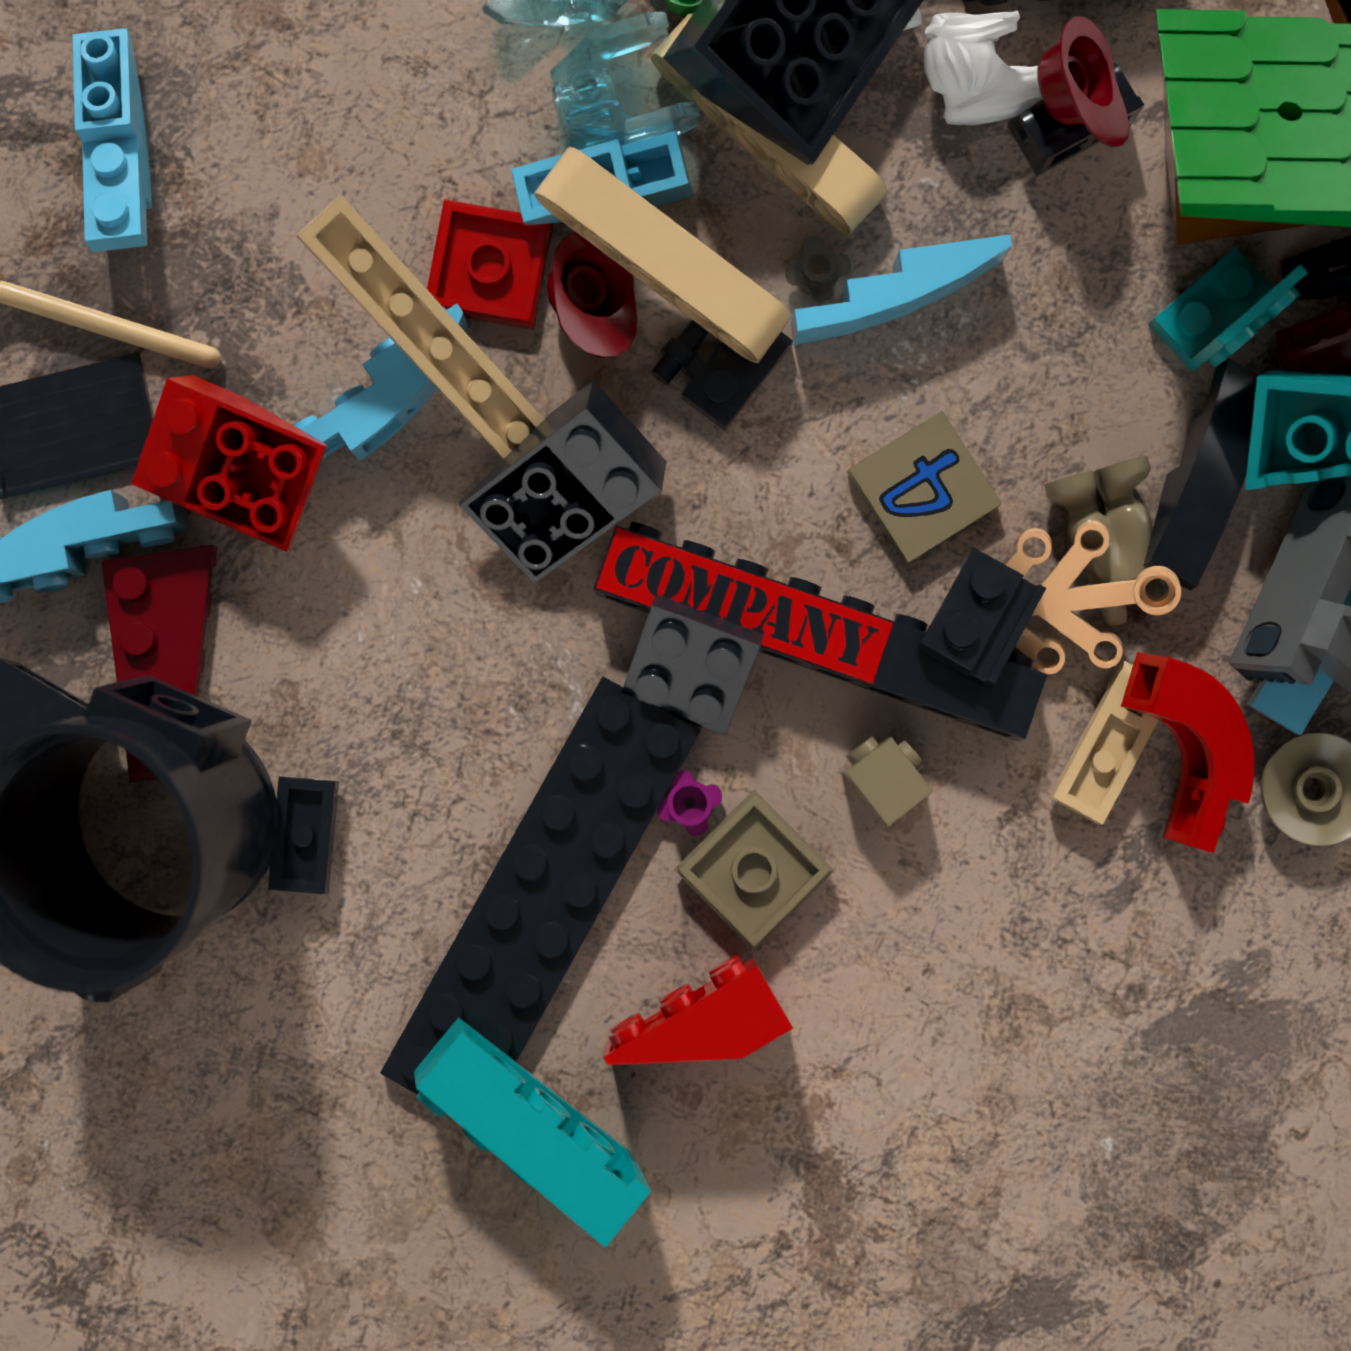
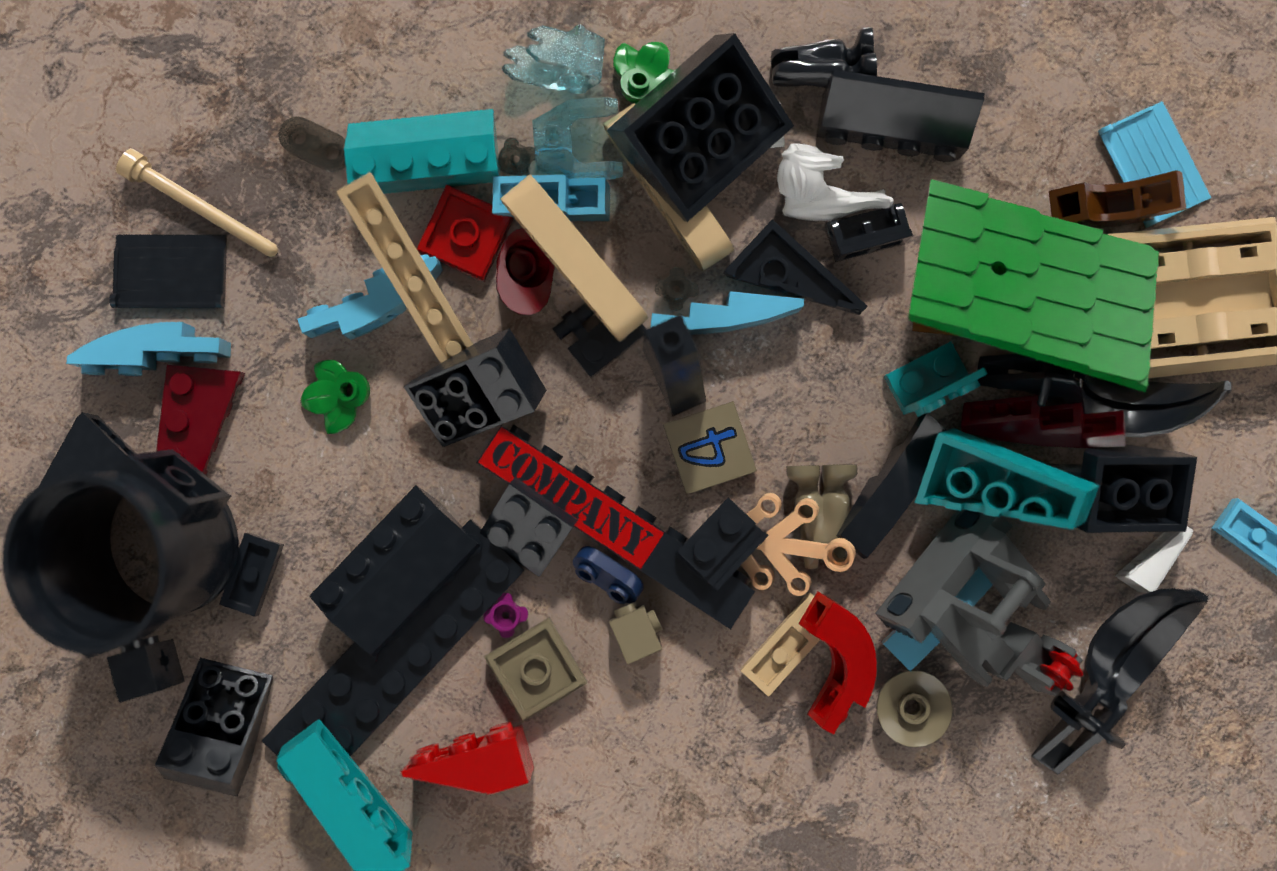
camera: 10 degrees right, 0 degrees up
(113, 140) = (243, 95): medium azure slope -> none
(185, 1006) = (145, 668): none -> black brick
(229, 460) = (261, 321): red slope -> none
(240, 187) = (316, 146): none -> clear smoke plate
(308, 1071) = (216, 727): none -> black slope
(352, 550) = (330, 395): none -> green plate
(404, 157) = (424, 151): none -> teal slope
(514, 775) = (394, 571): none -> black slope
(526, 124) = (507, 154): none -> clear smoke plate
(824, 706) = (607, 574): none -> dark blue plate
(849, 369) = (675, 364): none -> black slope
(969, 198) = (783, 265): none -> black wing
(1081, 83) = (874, 212): dark red piece -> none

